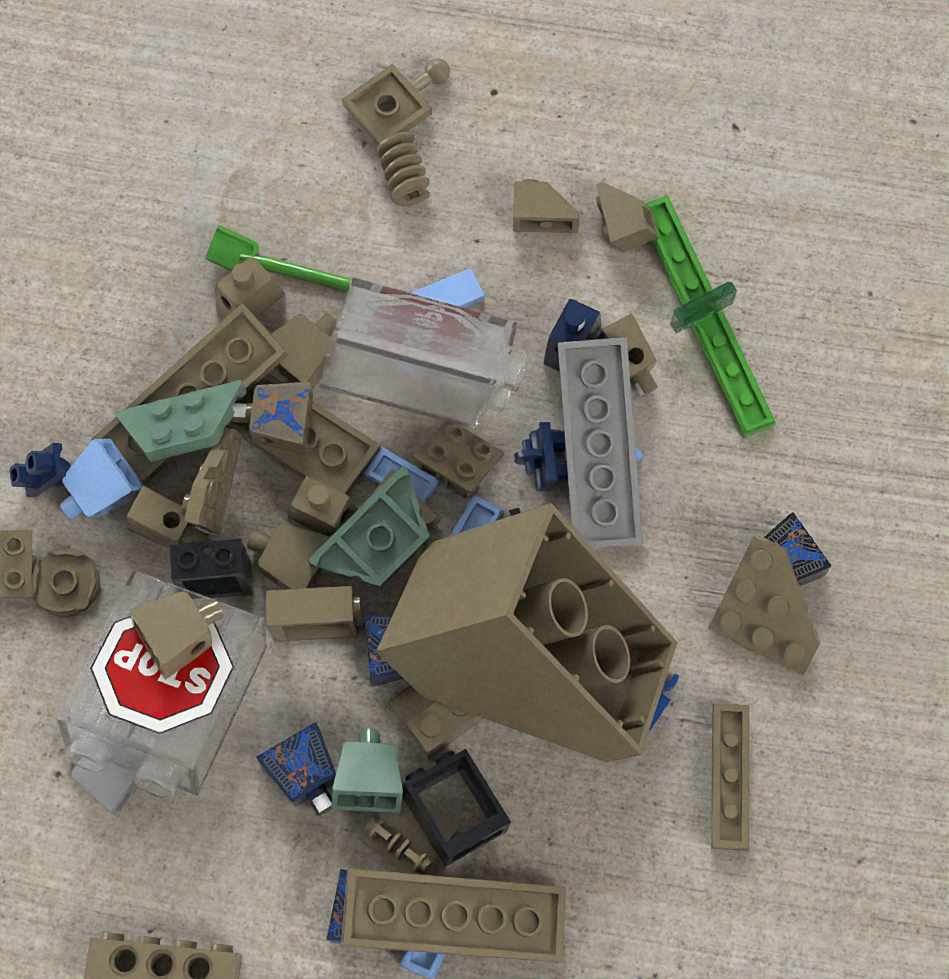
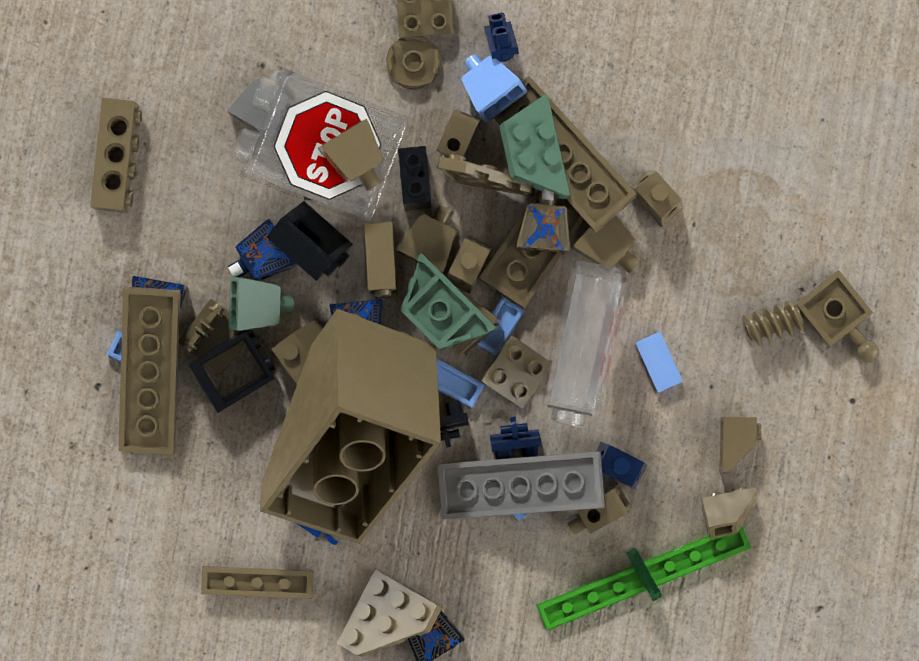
camera: 90 degrees right, 15 degrees up
(232, 249) = (695, 187): bright green piece -> none
(288, 701) = (310, 241): none -> black window

